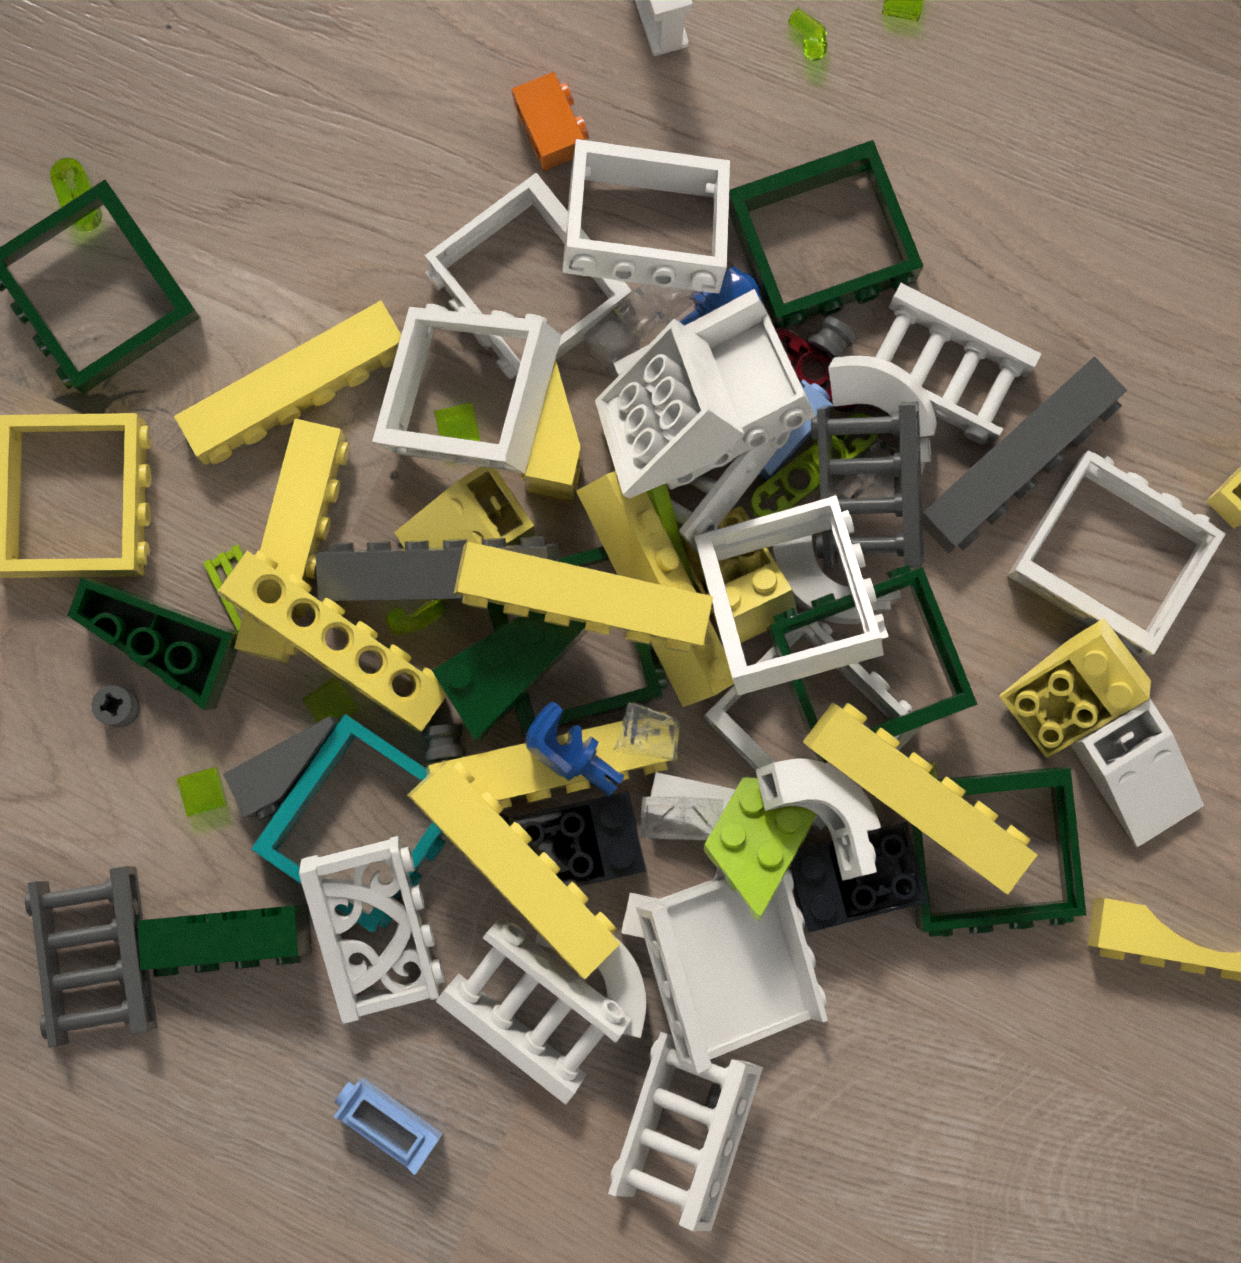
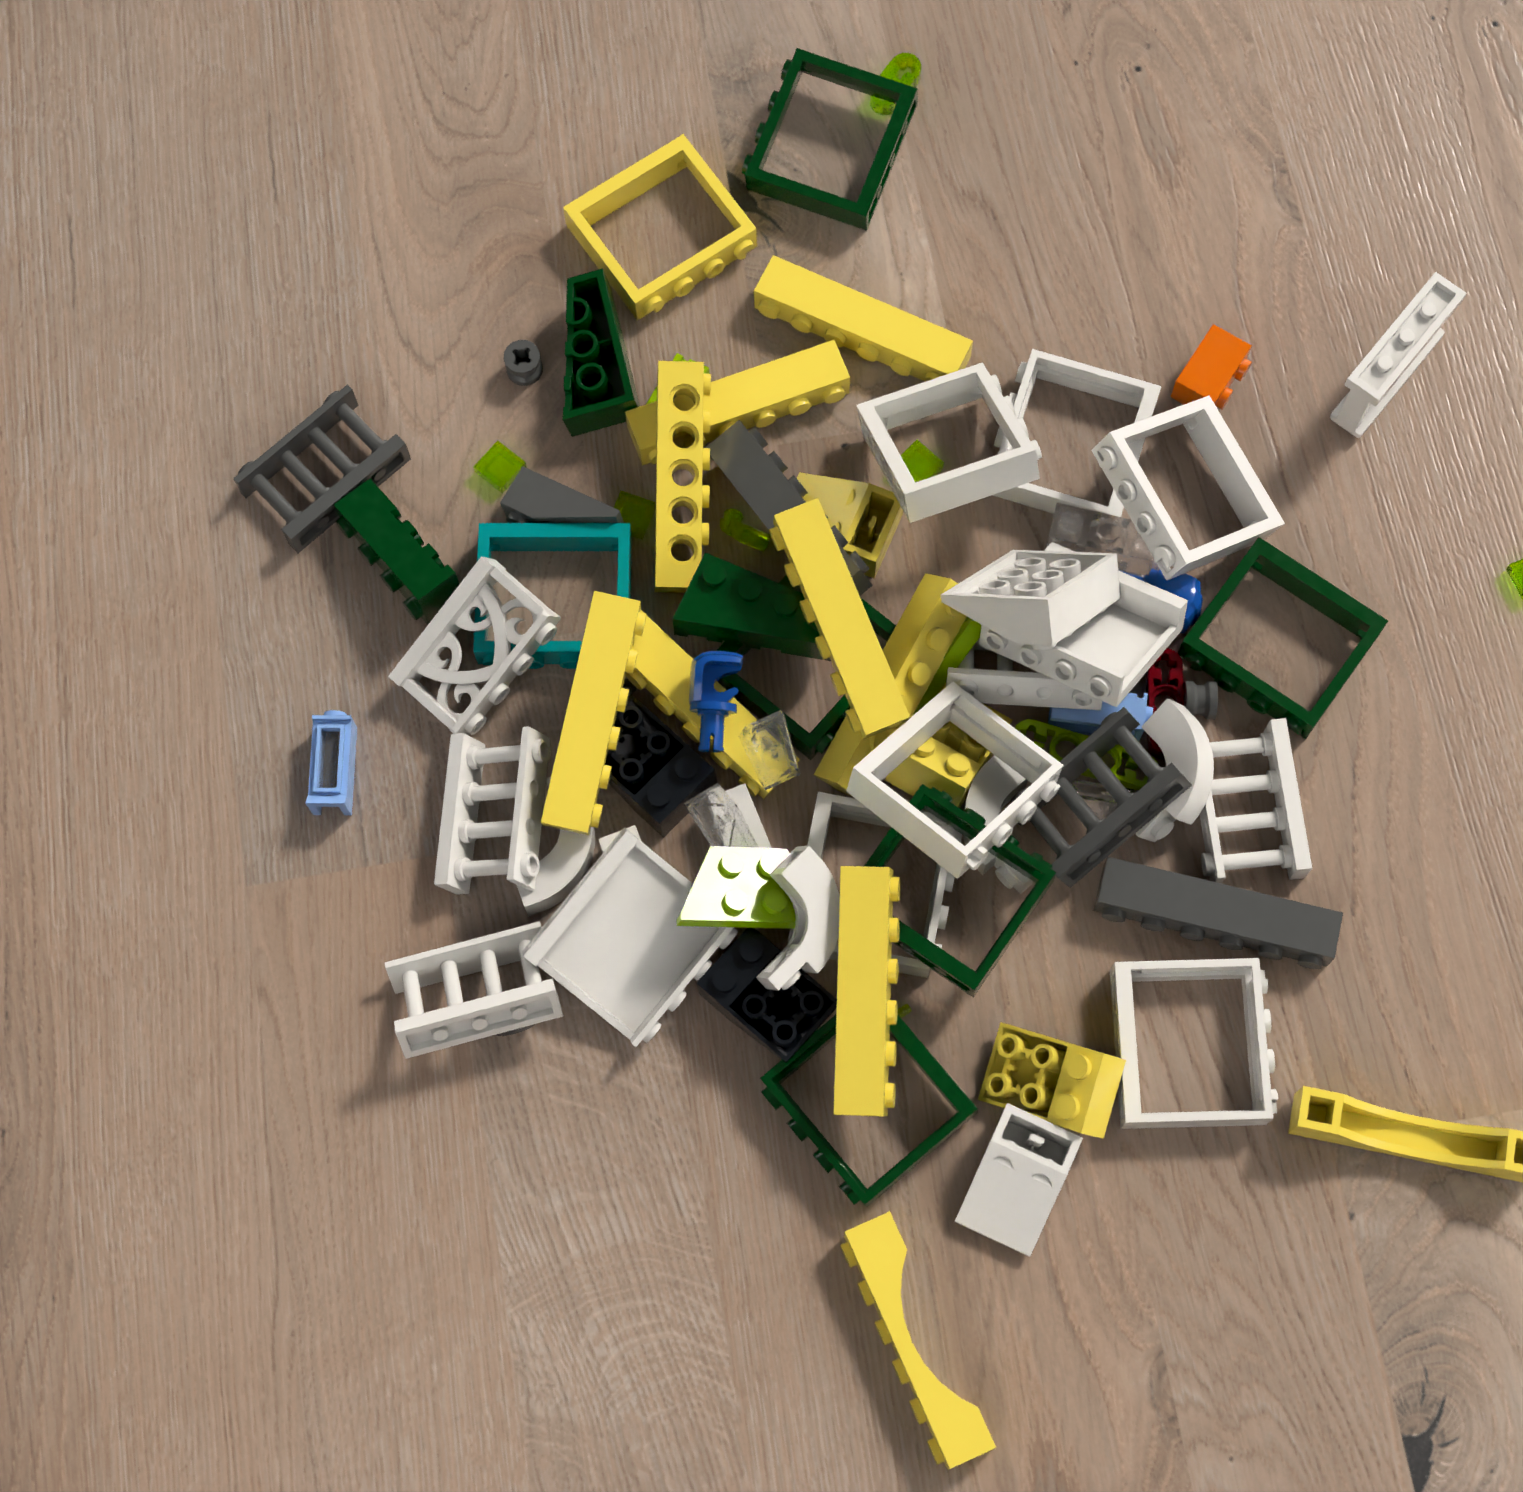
camera: 60 degrees right, 10 degrees down
(443, 742) = (660, 609): dark grey wheel -> none
(556, 450) = (954, 538): light yellow slope -> none
(813, 32) = (1445, 526): clear neon green arm -> none

